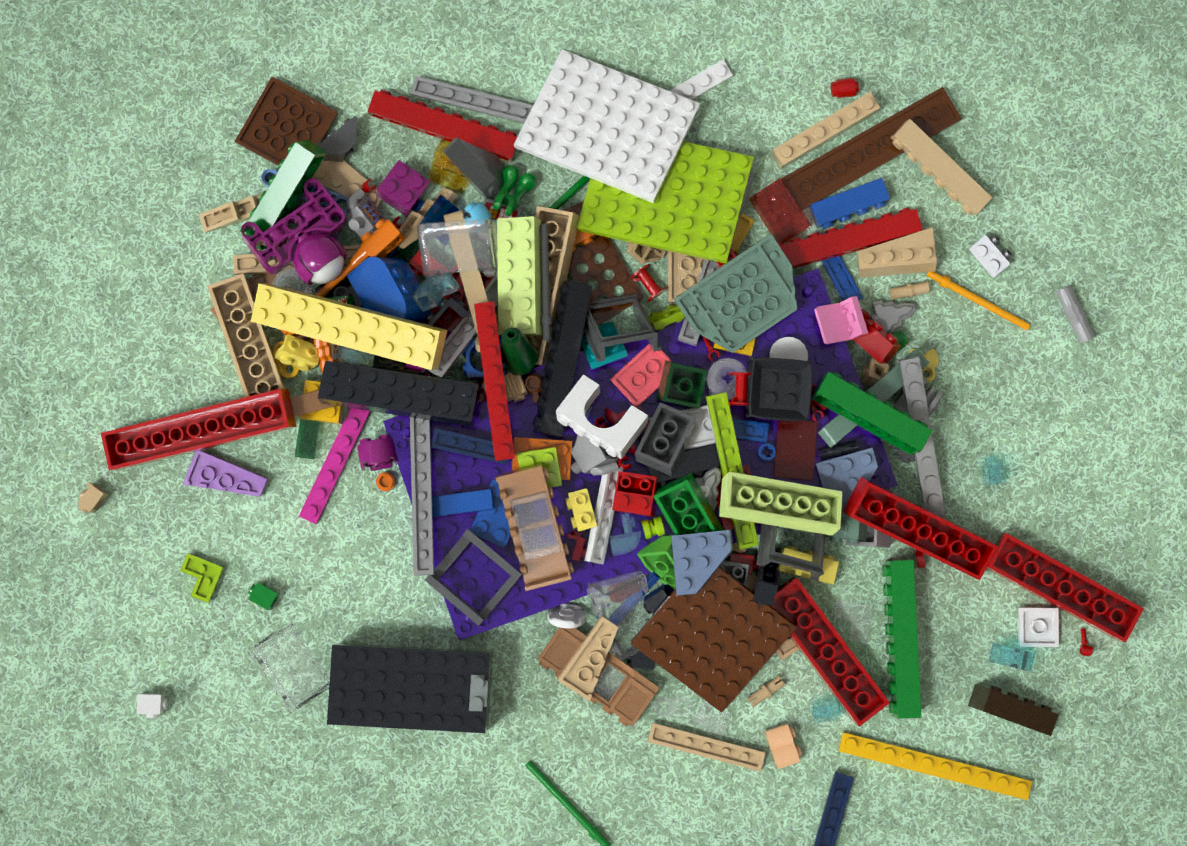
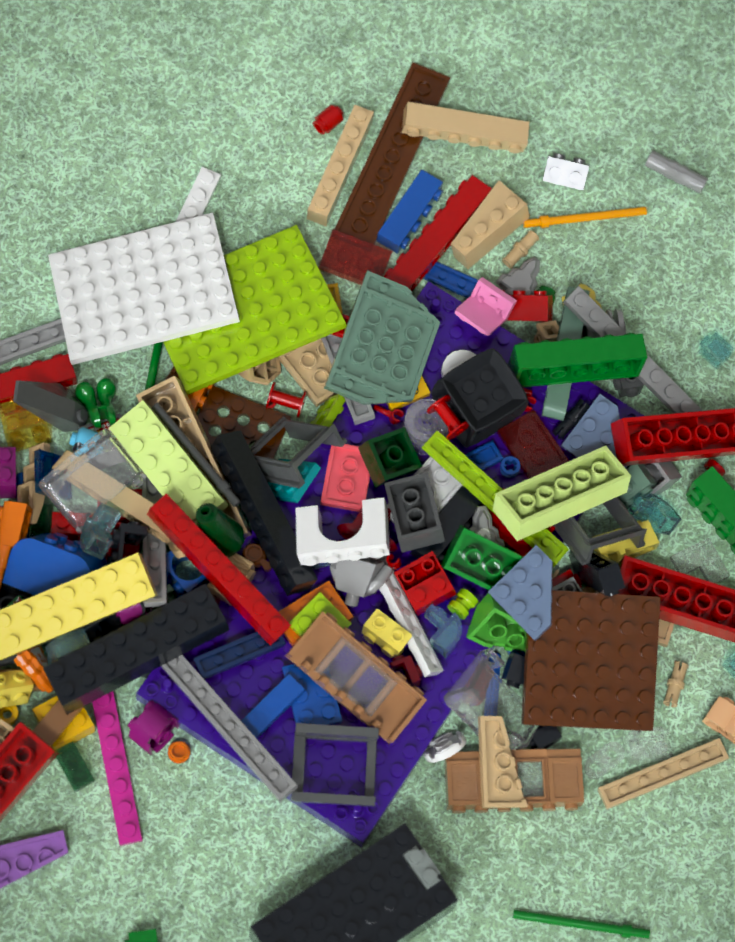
camera: 50 degrees left, 15 degrees down
(850, 560) = (657, 511): none -> clear light blue brick

